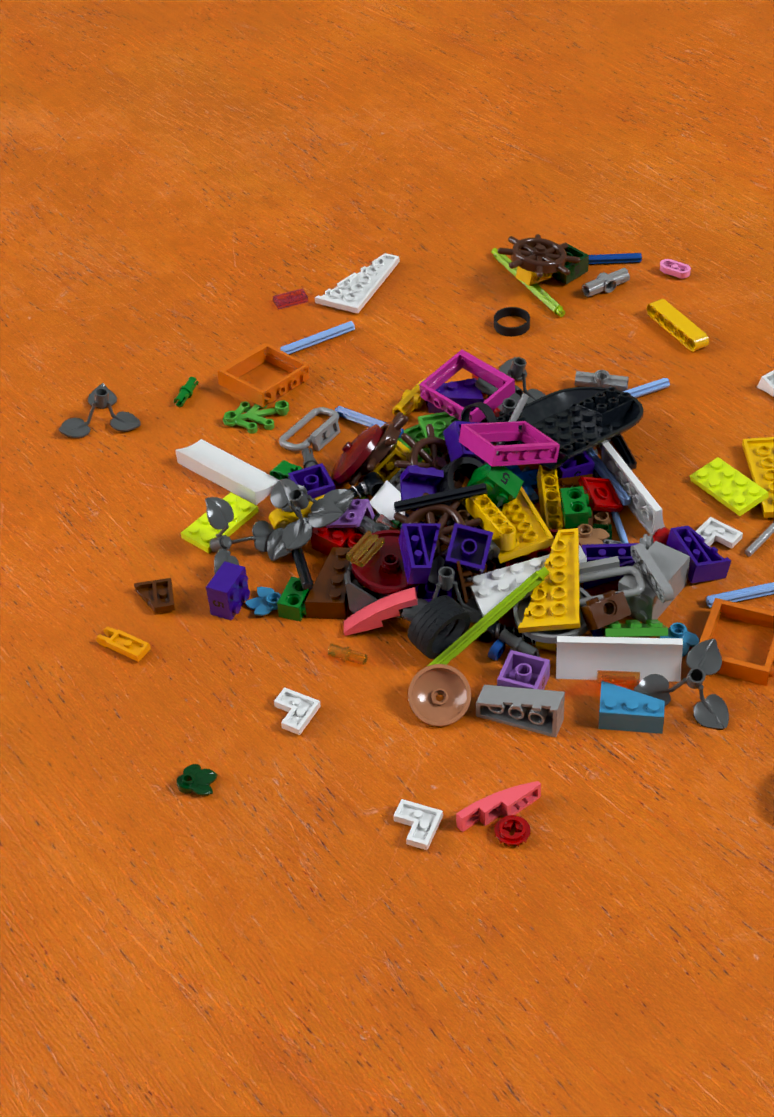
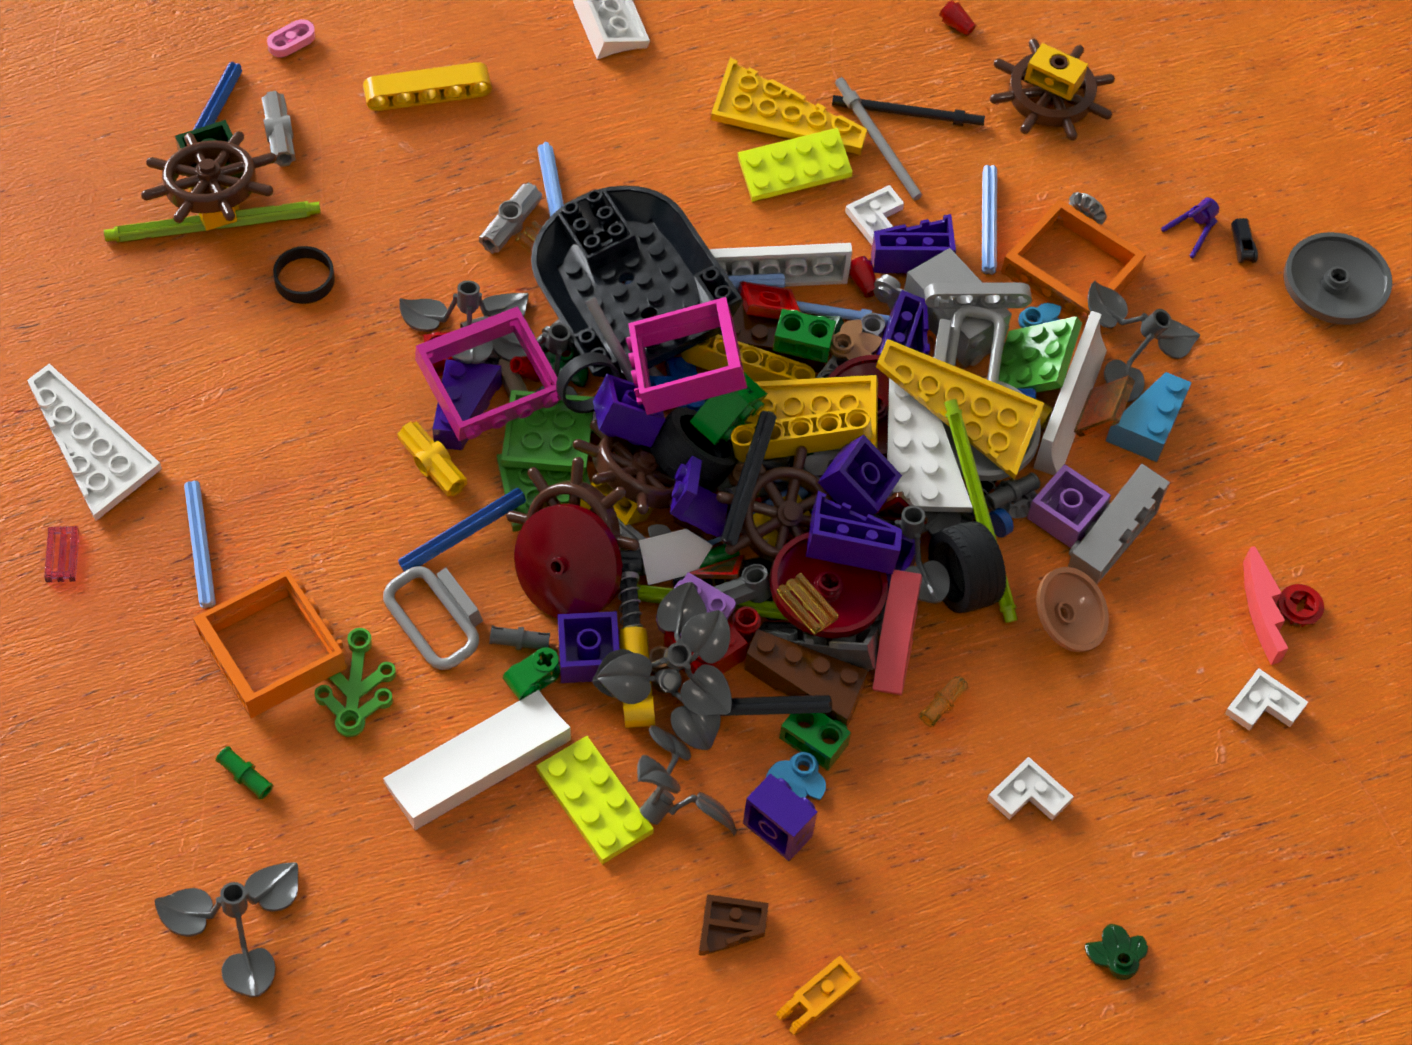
camera: 80 degrees left, 15 degrees up
(616, 608) = (1027, 367): reddish brown brick -> none

